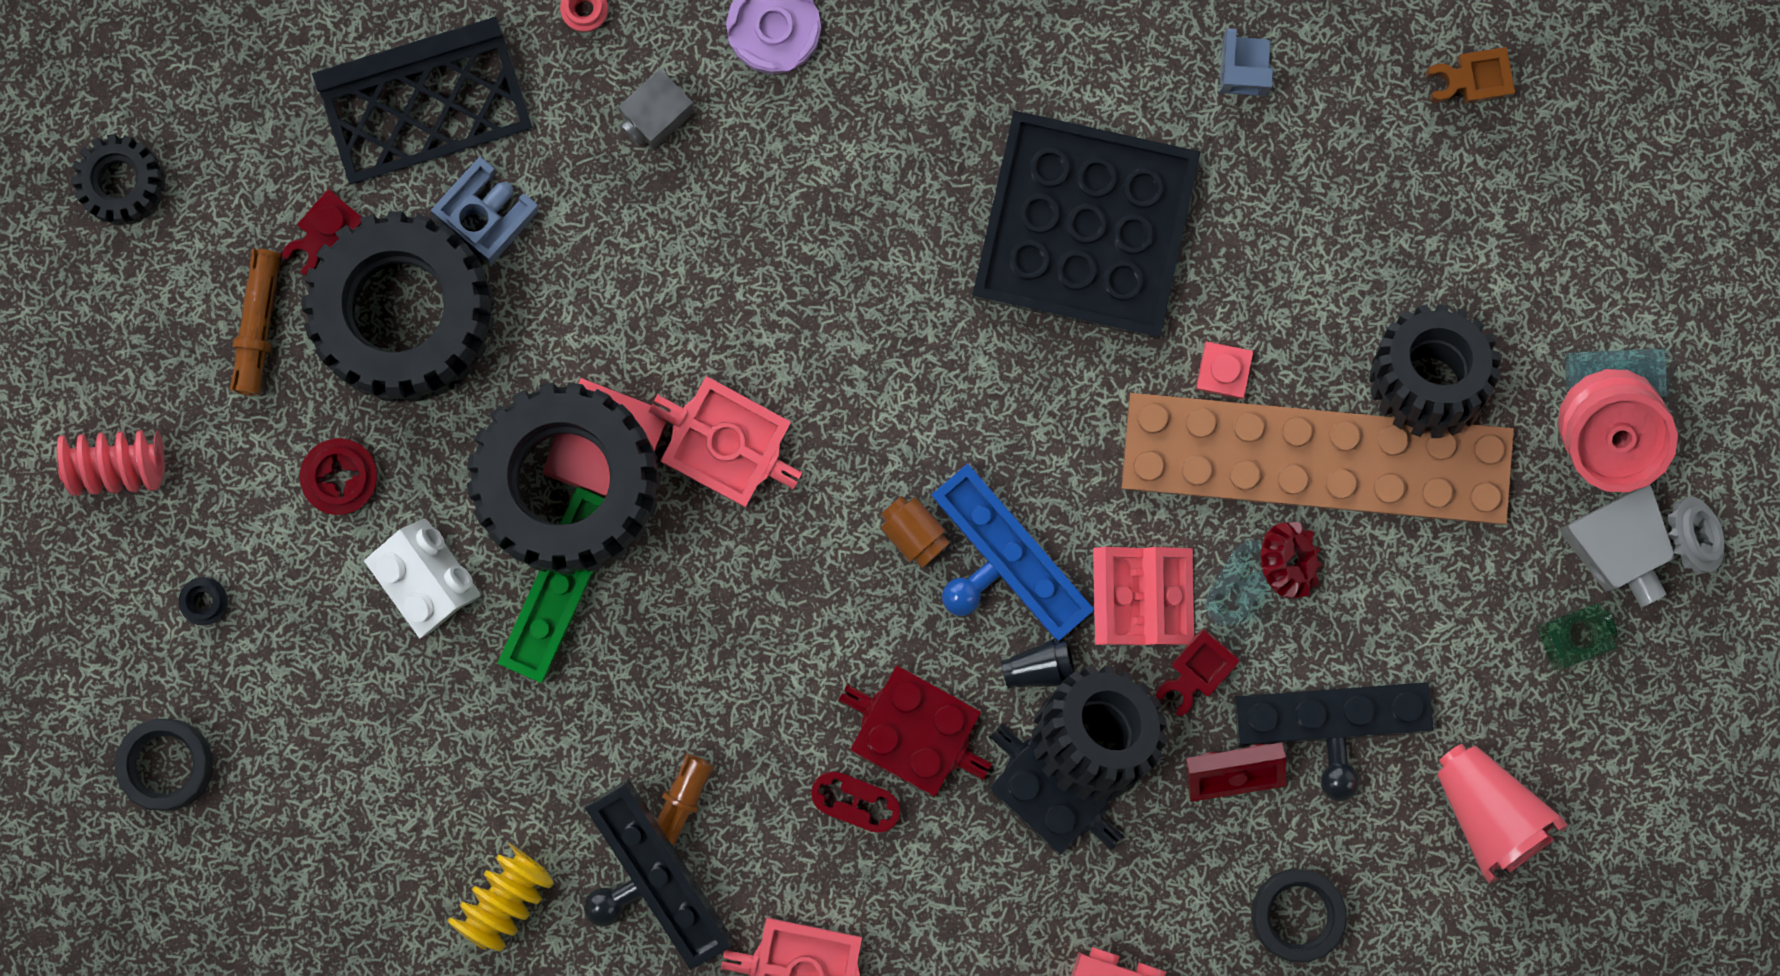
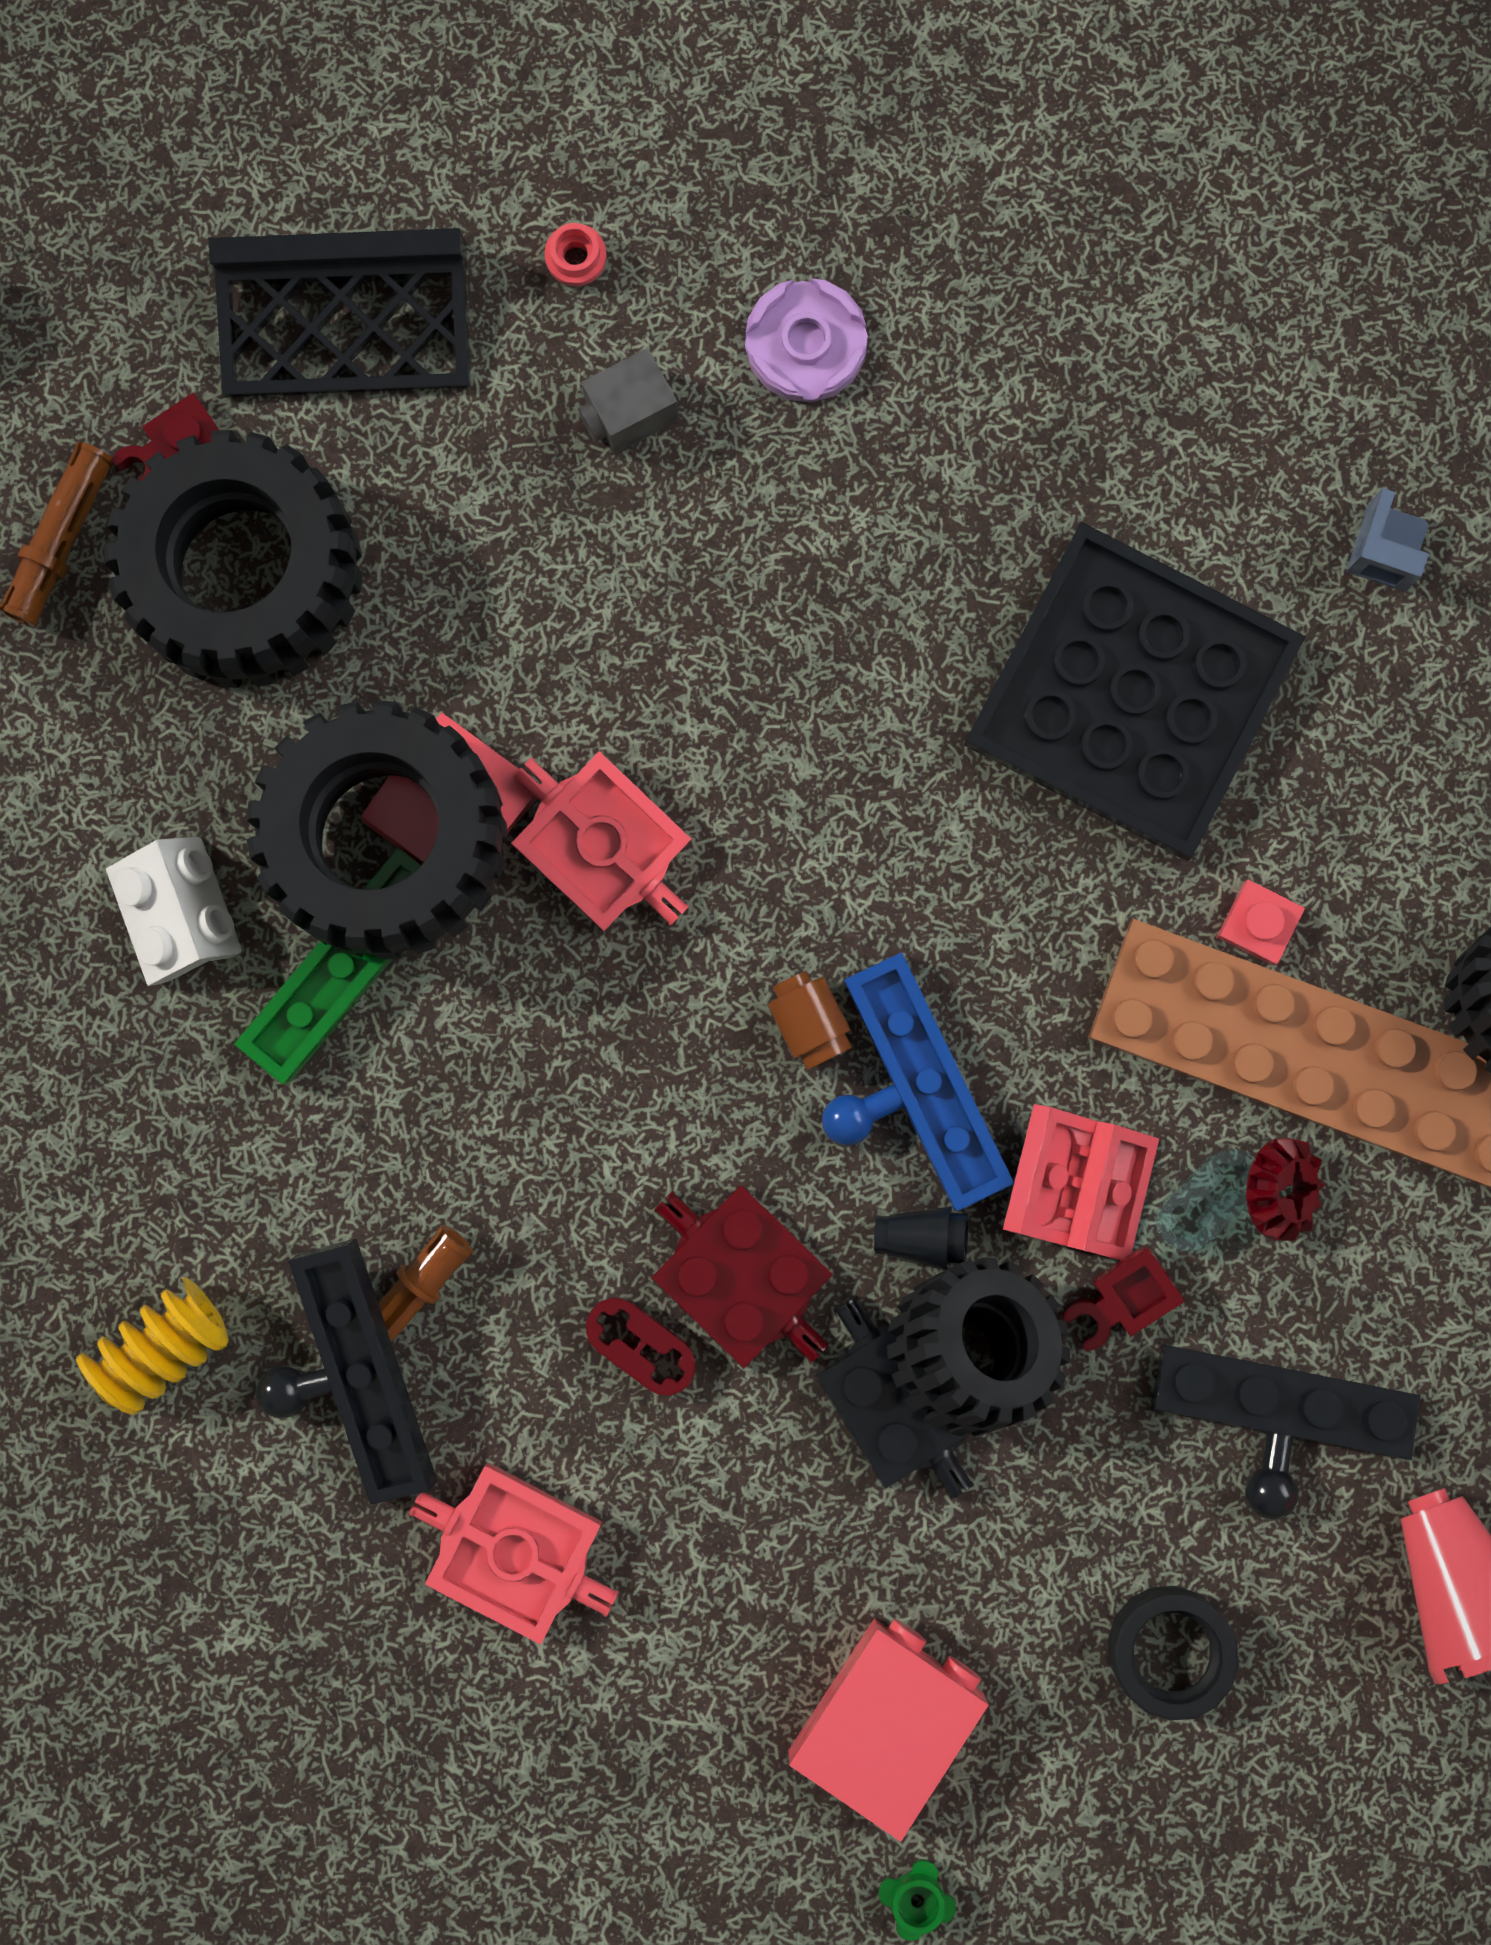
camera: 20 degrees right, 0 degrees up
(321, 462) = (87, 732): dark red gear -> none
(461, 202) = (354, 453): sand blue brick -> none
(1236, 771) = (1141, 1443): dark red plate -> none

